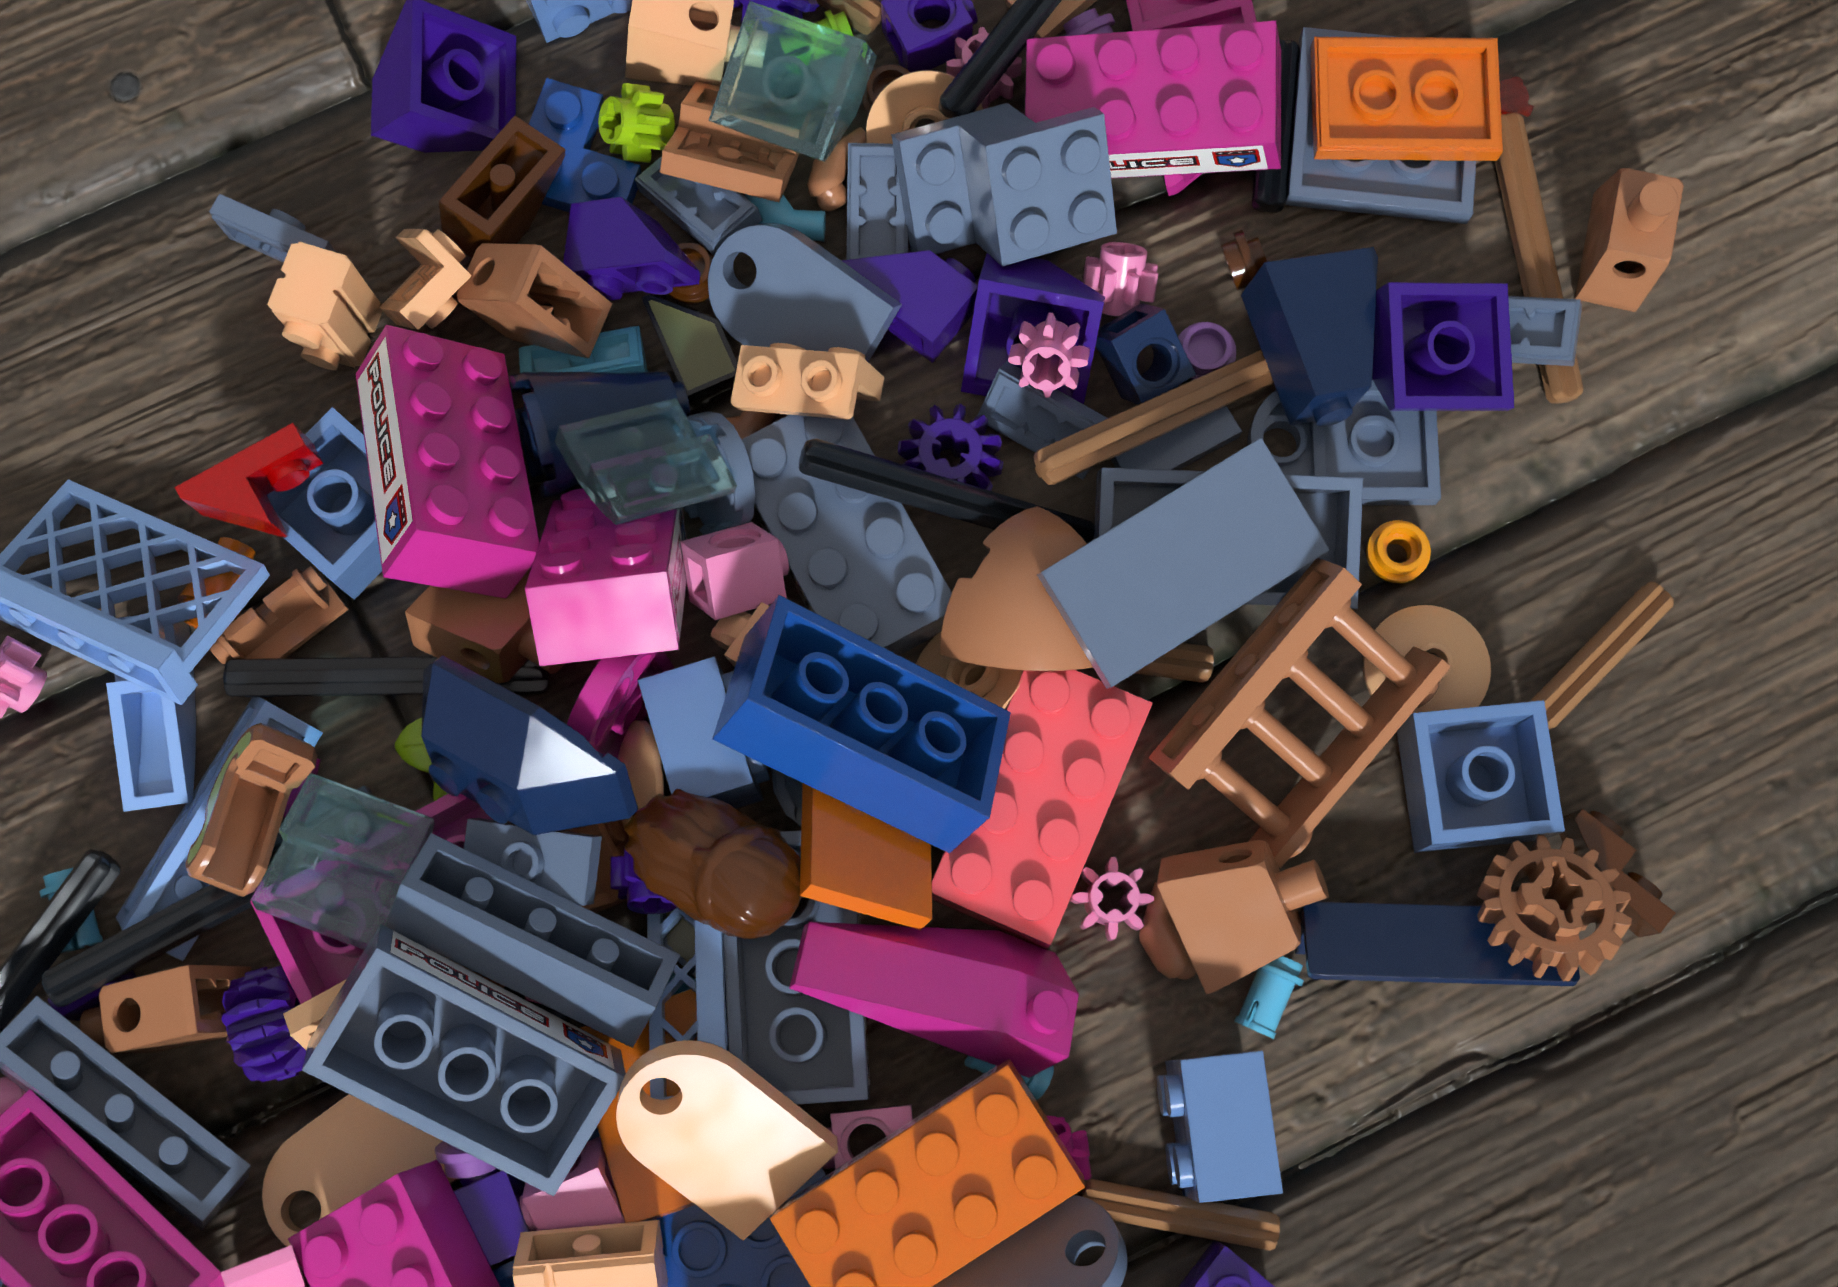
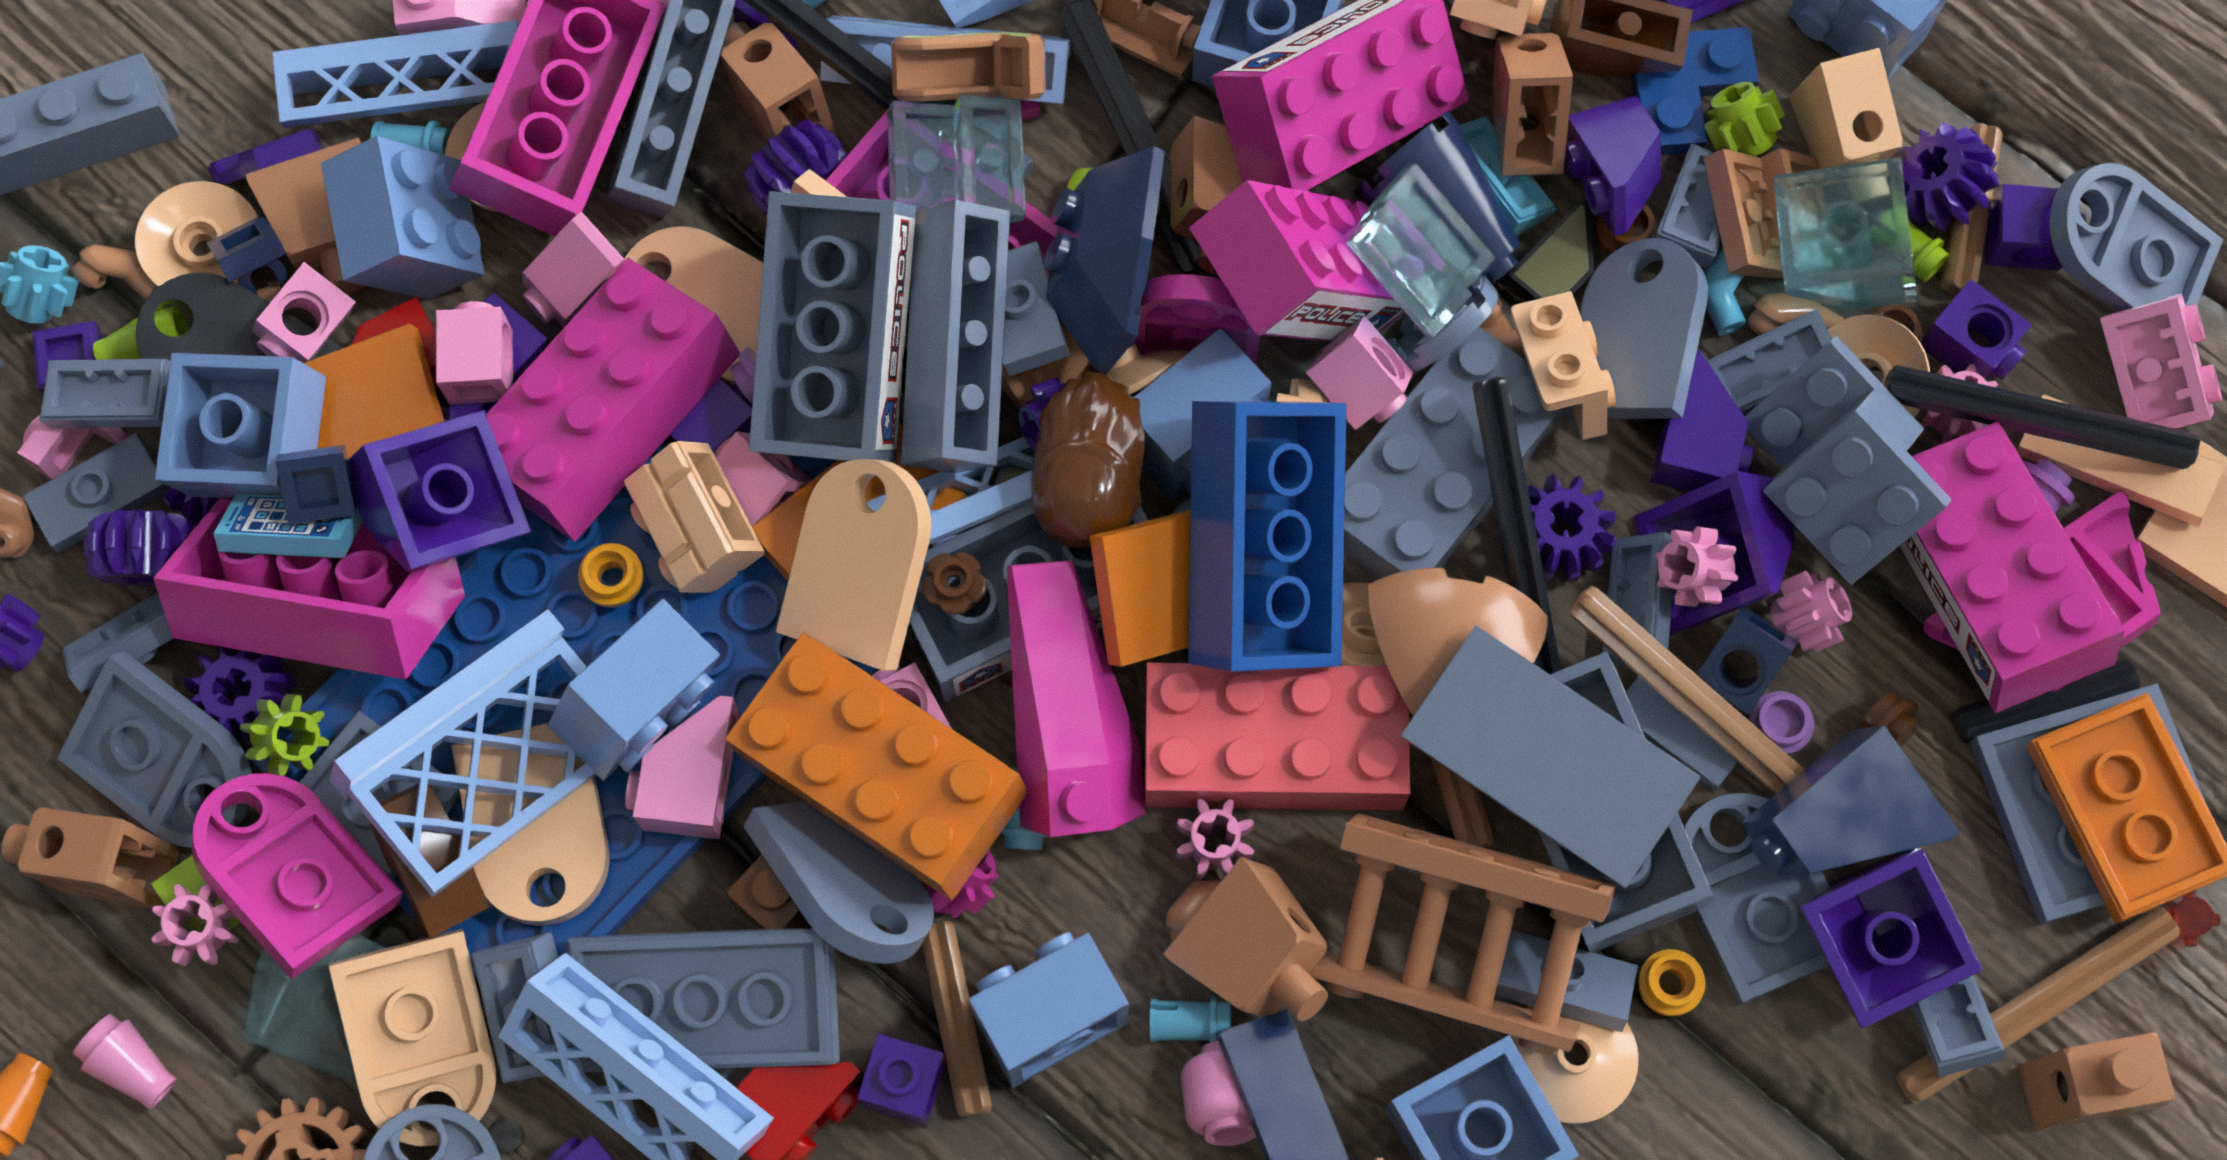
camera: 65 degrees right, 5 degrees down
(796, 1046) = (954, 599): none -> reddish brown plate
(1351, 1005) = (1212, 1099): none -> bright pink head
(1390, 614) = (1597, 987): none -> sand blue plate

